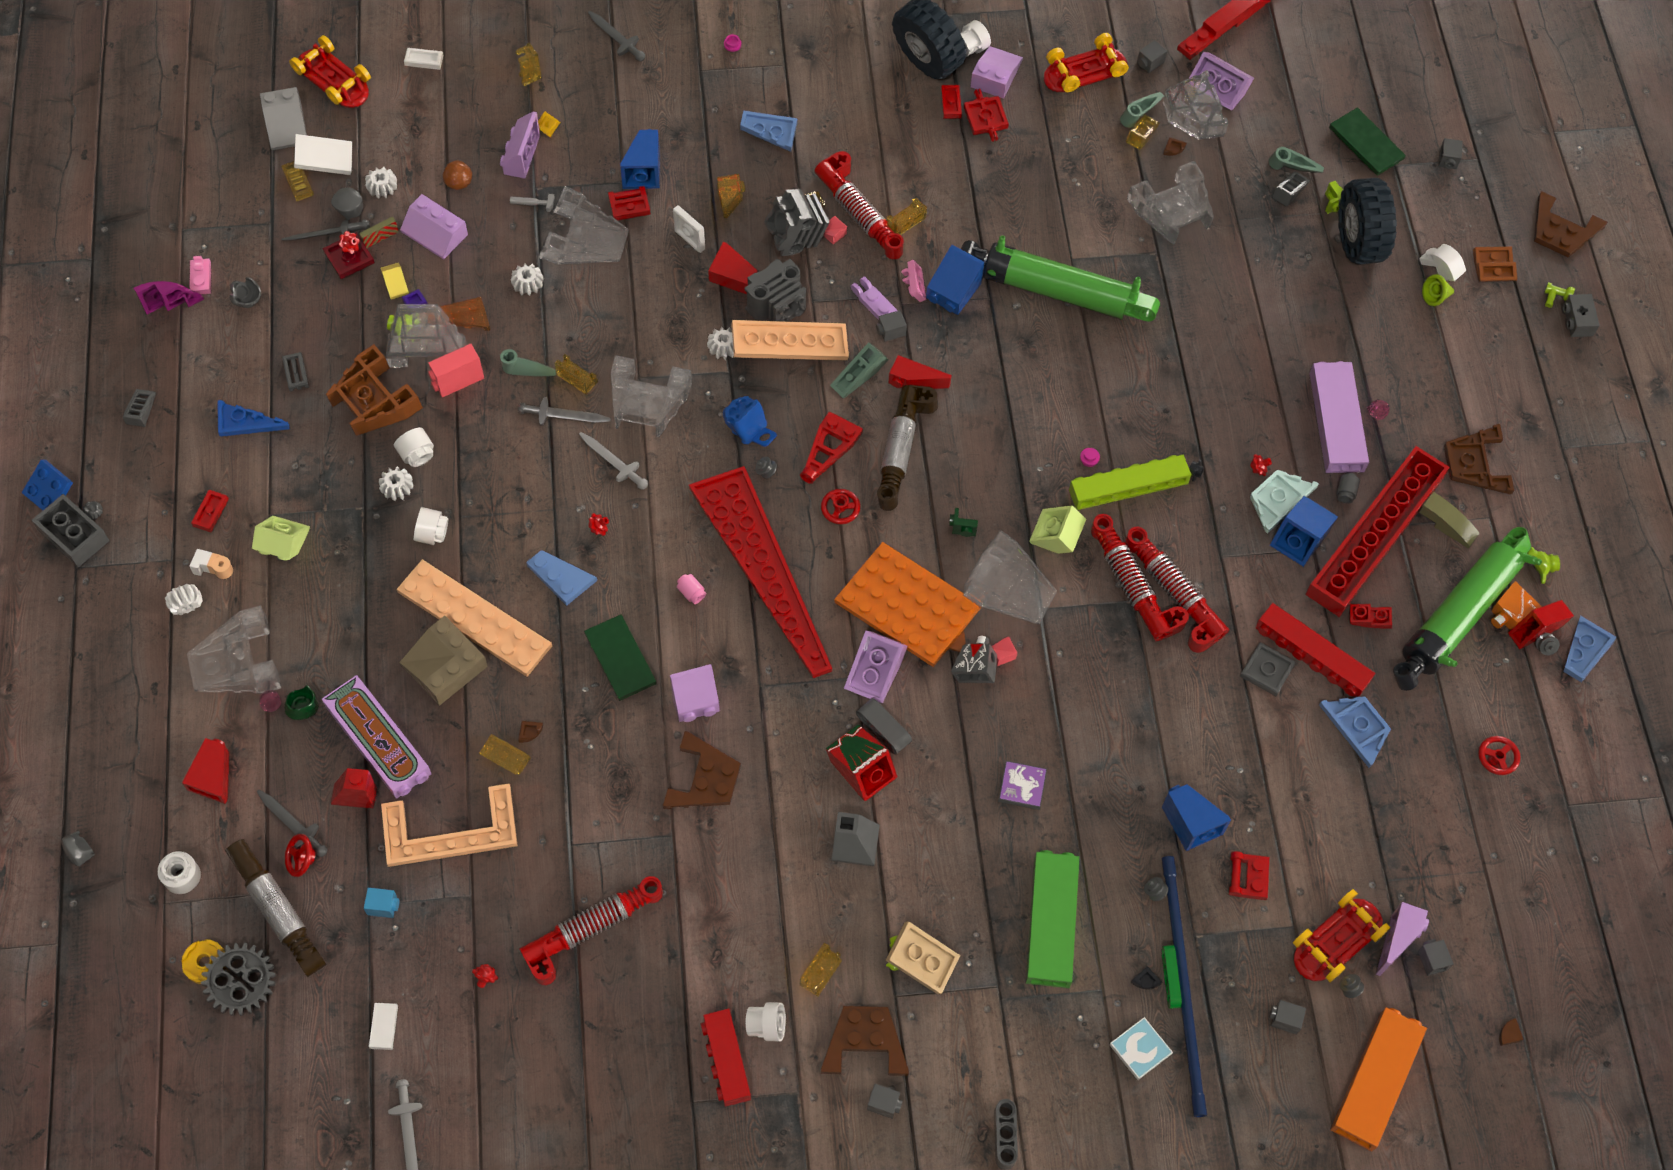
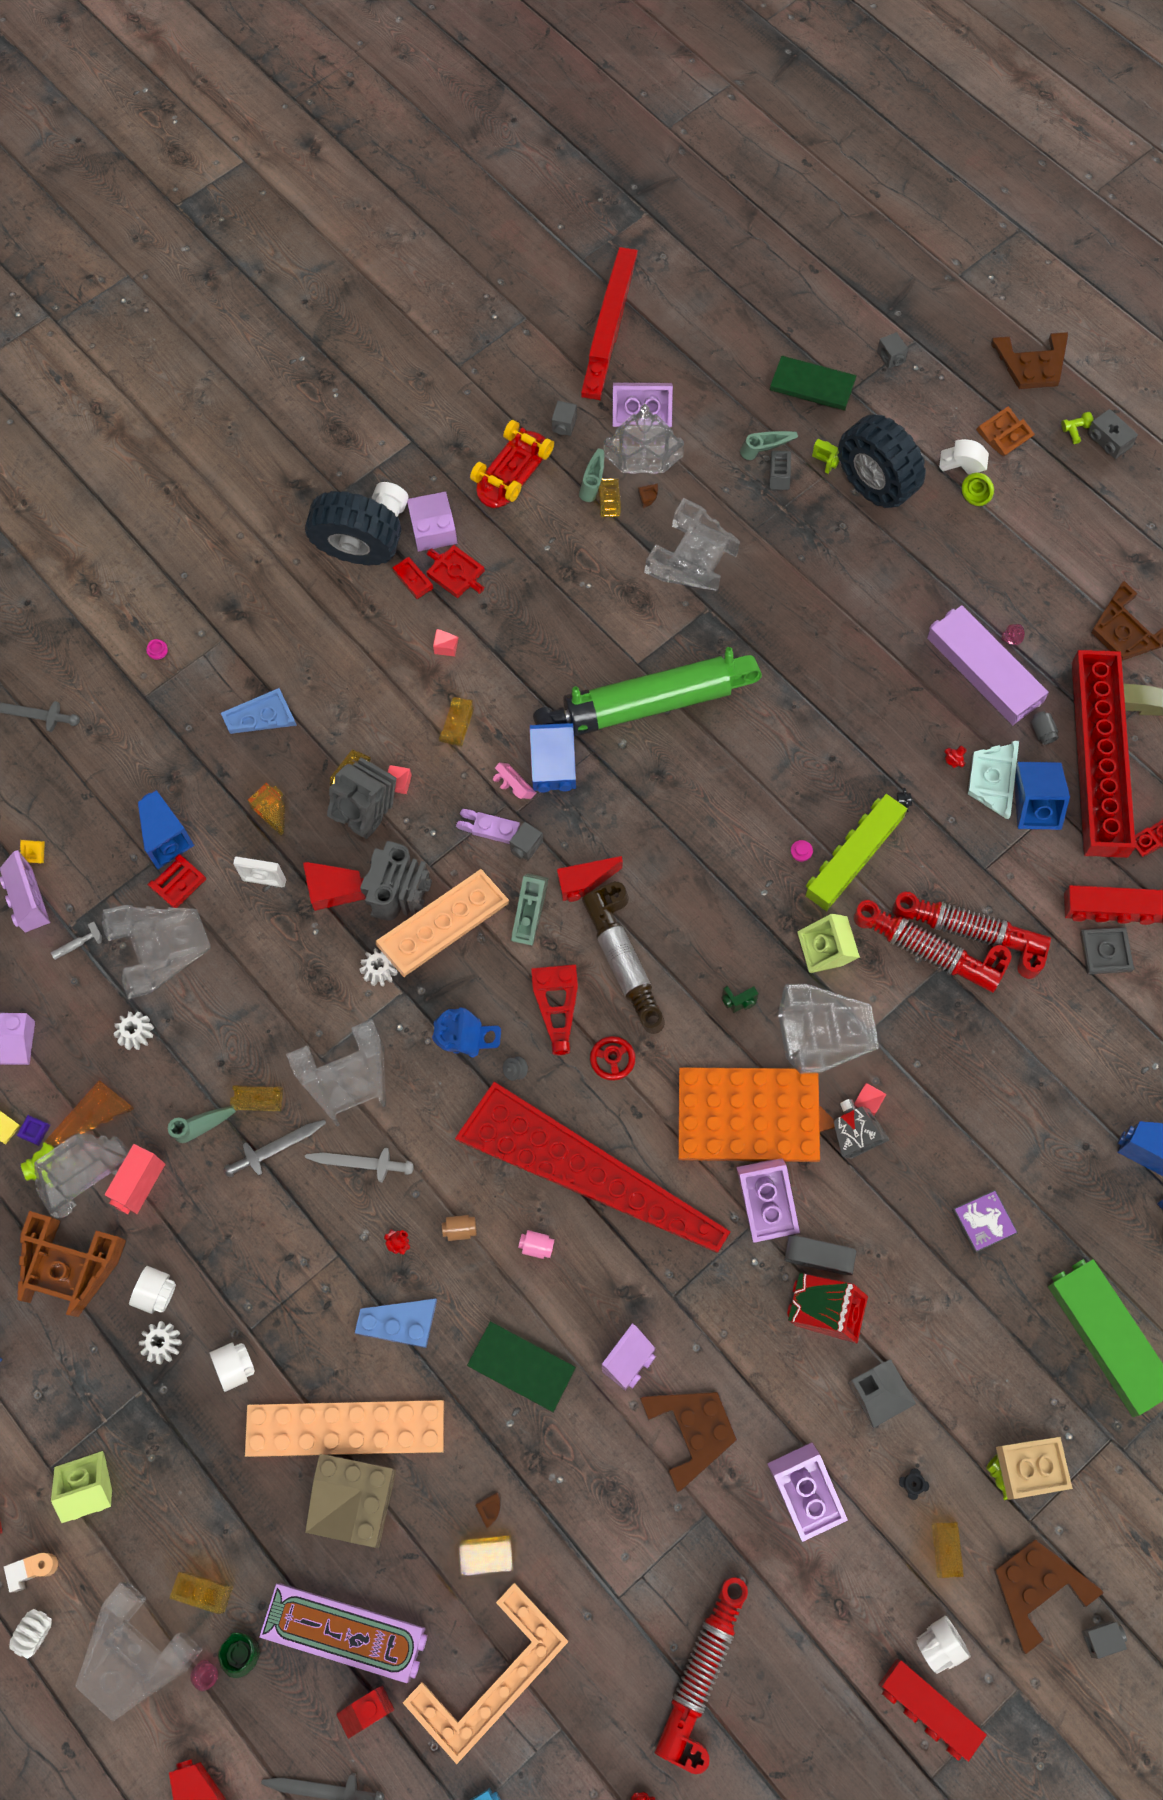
camera: 30 degrees left, 5 degrees up
(306, 648) = (201, 1592): none -> clear yellow brick
(647, 543) = (459, 1227): none -> medium nougat brick
(751, 866) = (807, 1491): none -> lavender slope
(831, 908) = (921, 1484): none -> black plate
(833, 173) = (402, 740): red piece -> none
(939, 159) = (445, 643): none -> coral slope

